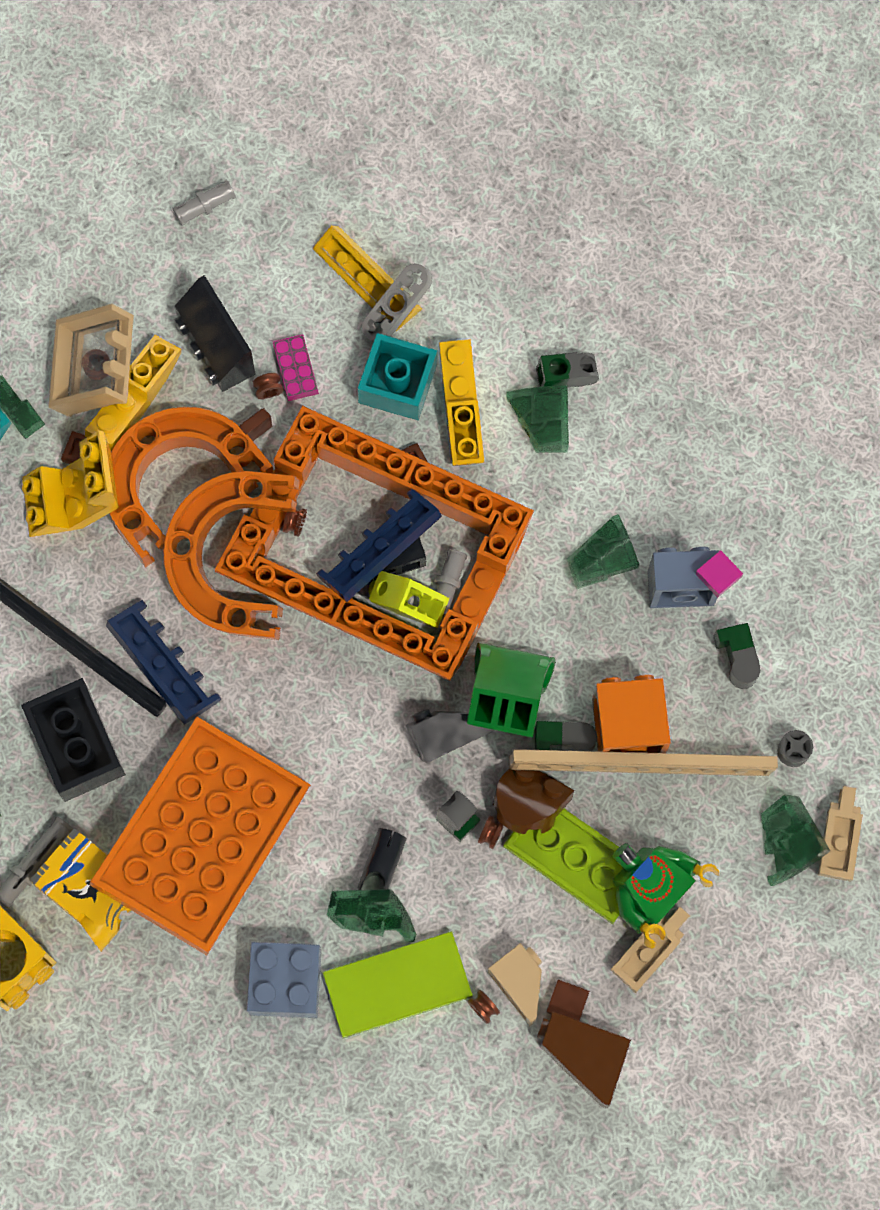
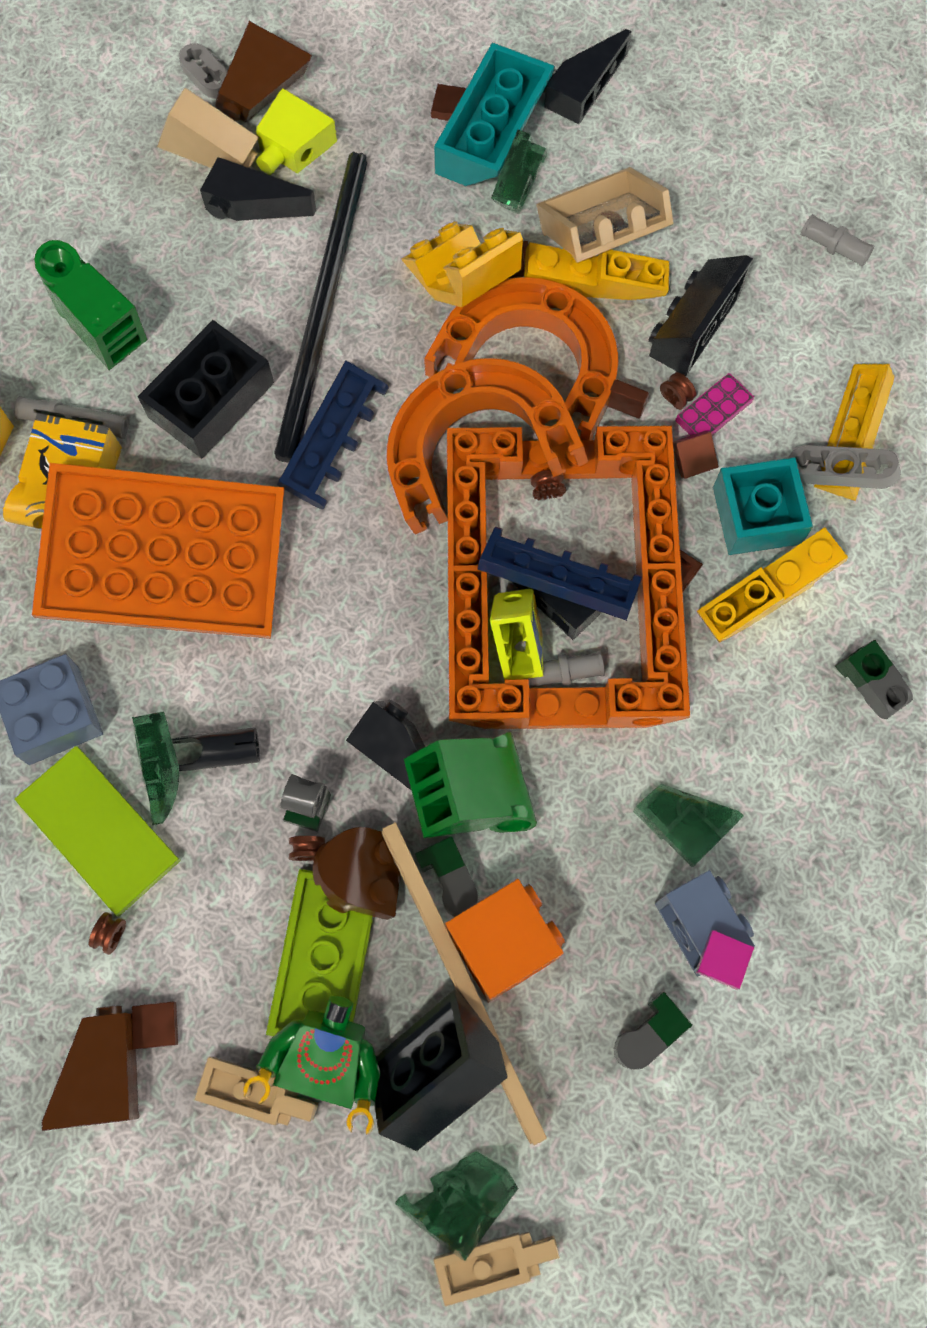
camera: 65 degrees right, 0 degrees up
(327, 400) = (695, 454): none -> copper tile
(519, 980) = (150, 960): tan slope -> none
(543, 416) = (809, 680): clear green slope -> none
(698, 808) = (436, 1072): none -> black slope
(799, 743) = (579, 1158): dark grey wheel -> none

